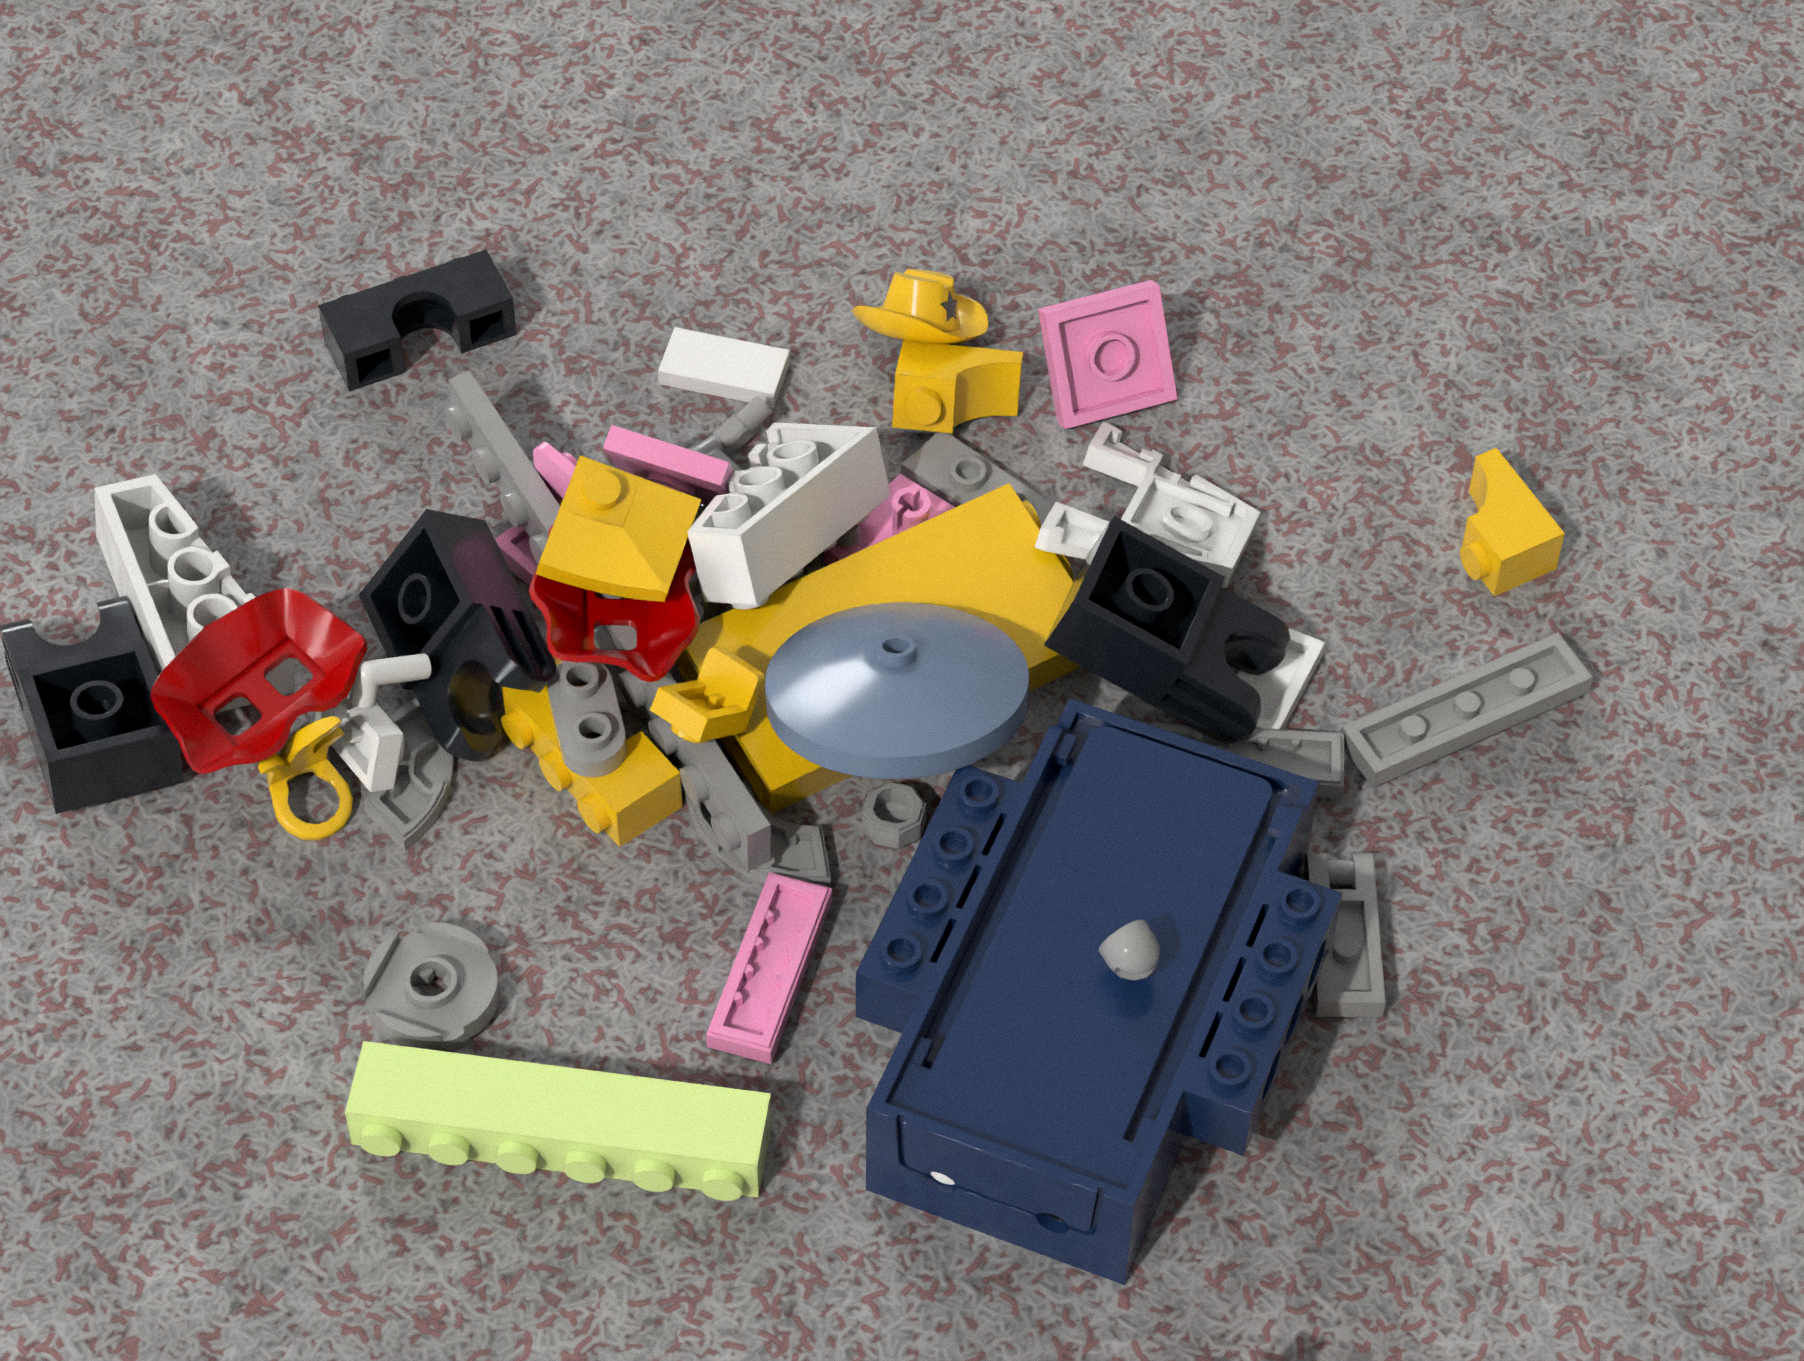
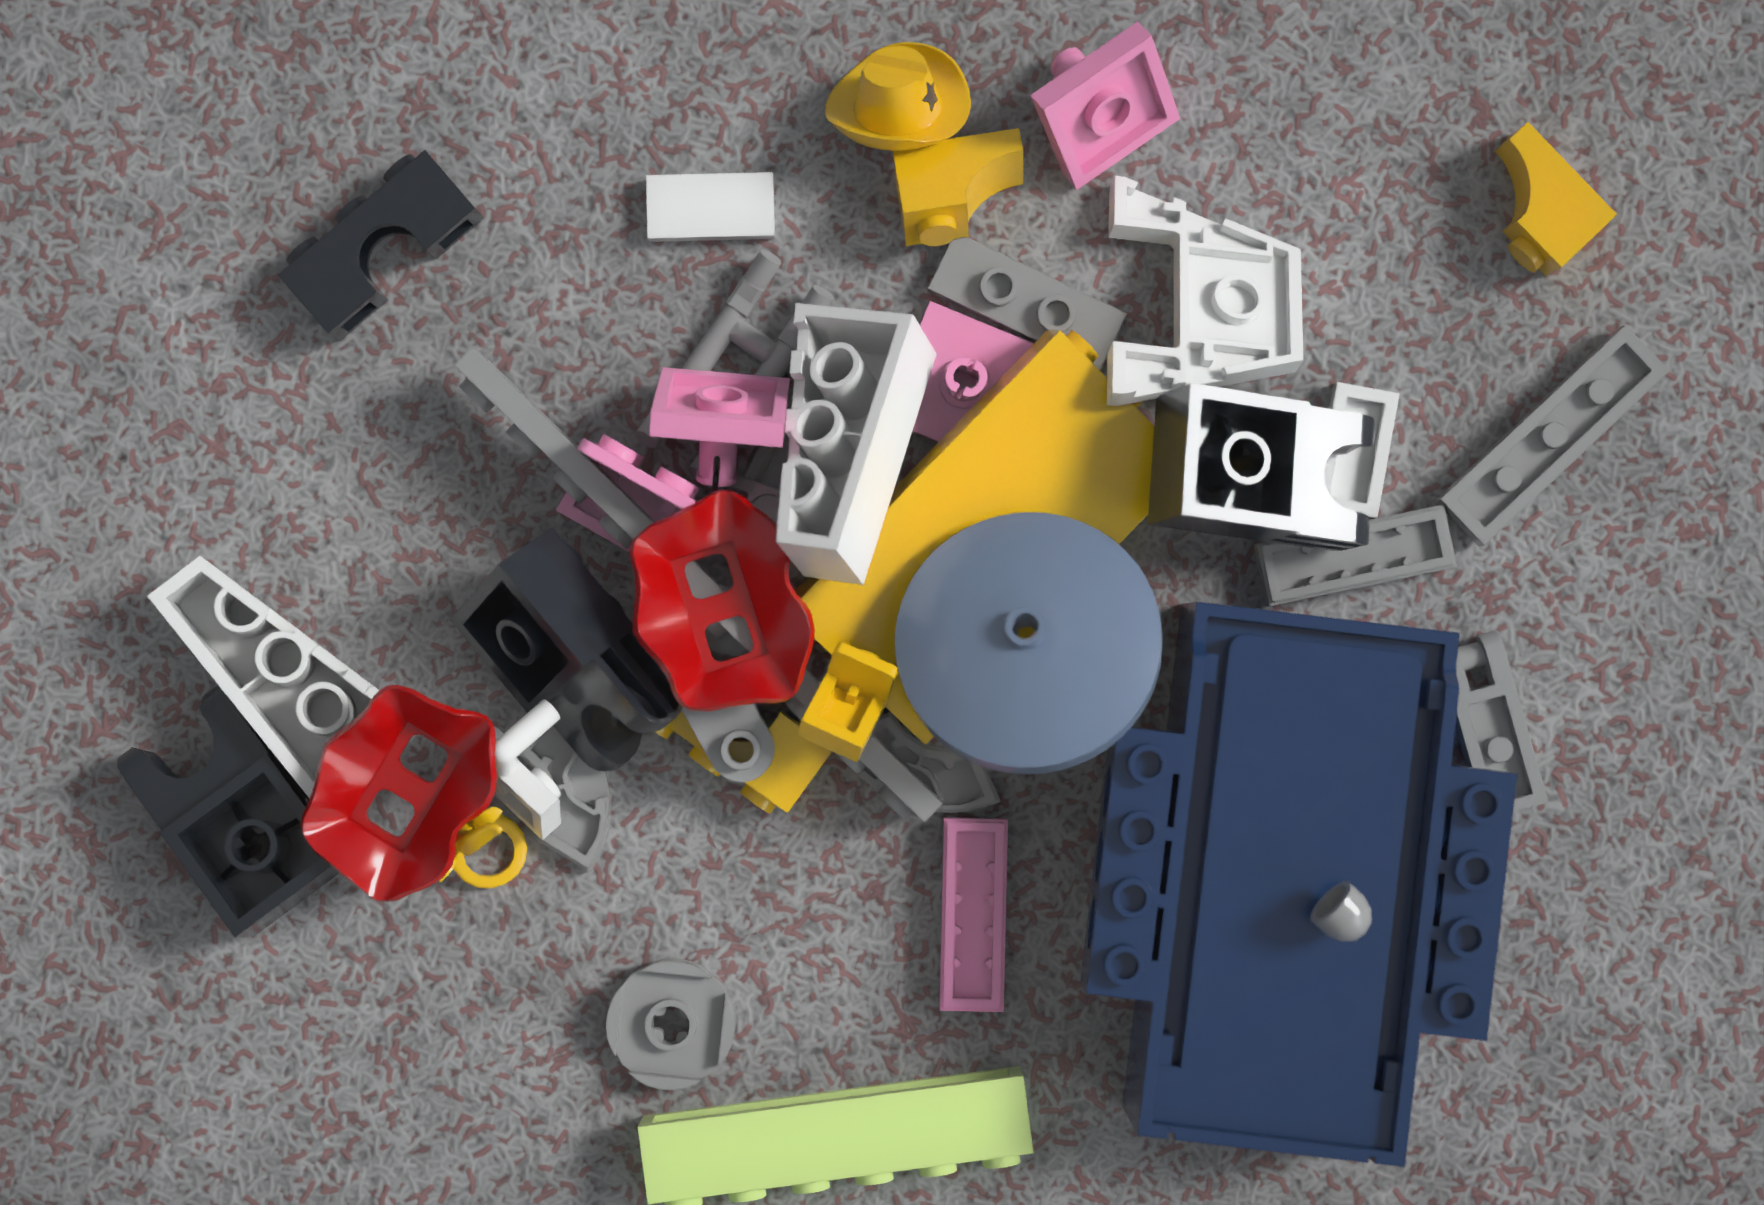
camera: 20 degrees left, 35 degrees up
(617, 533) = (707, 555): yellow plate -> none

